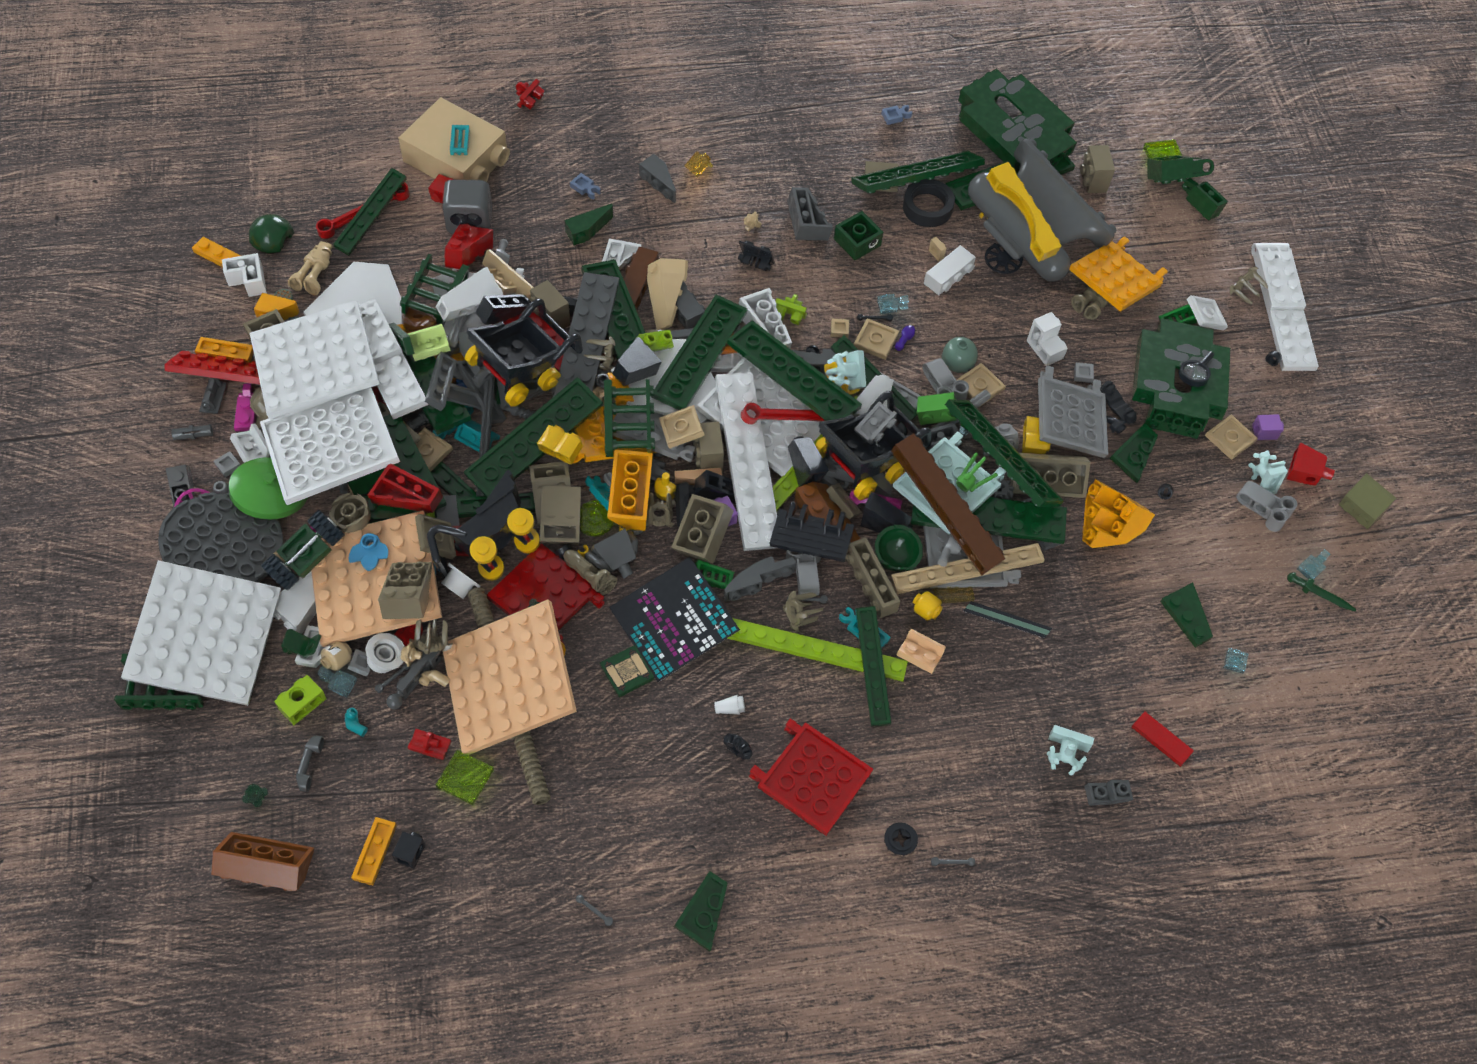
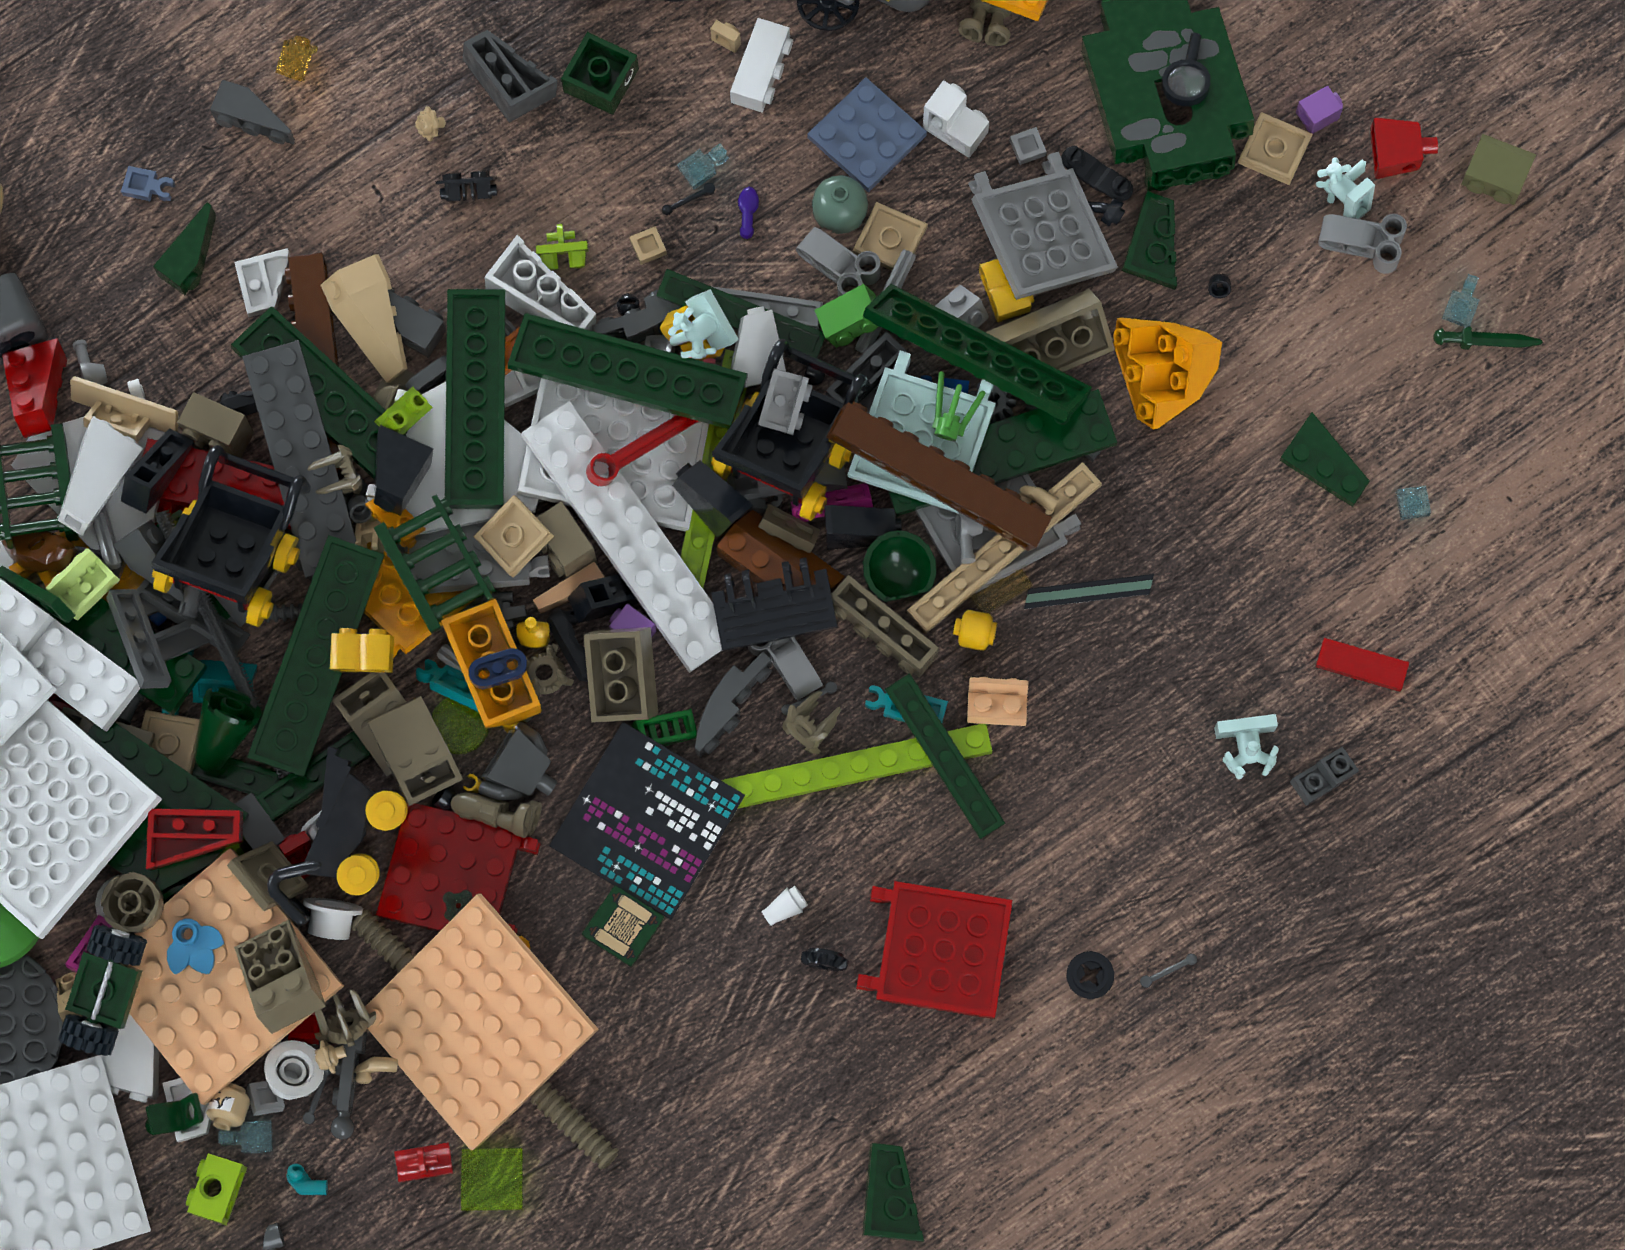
camera: 20 degrees left, 15 degrees up
(459, 450) = (223, 726): none -> dark green cone
(632, 486) = (497, 667): none -> dark blue plate
(876, 339) = (707, 235): tan tile -> none
(993, 329) = (867, 134): none -> sand blue plate
(1008, 553) = (1039, 495): none -> tan arm

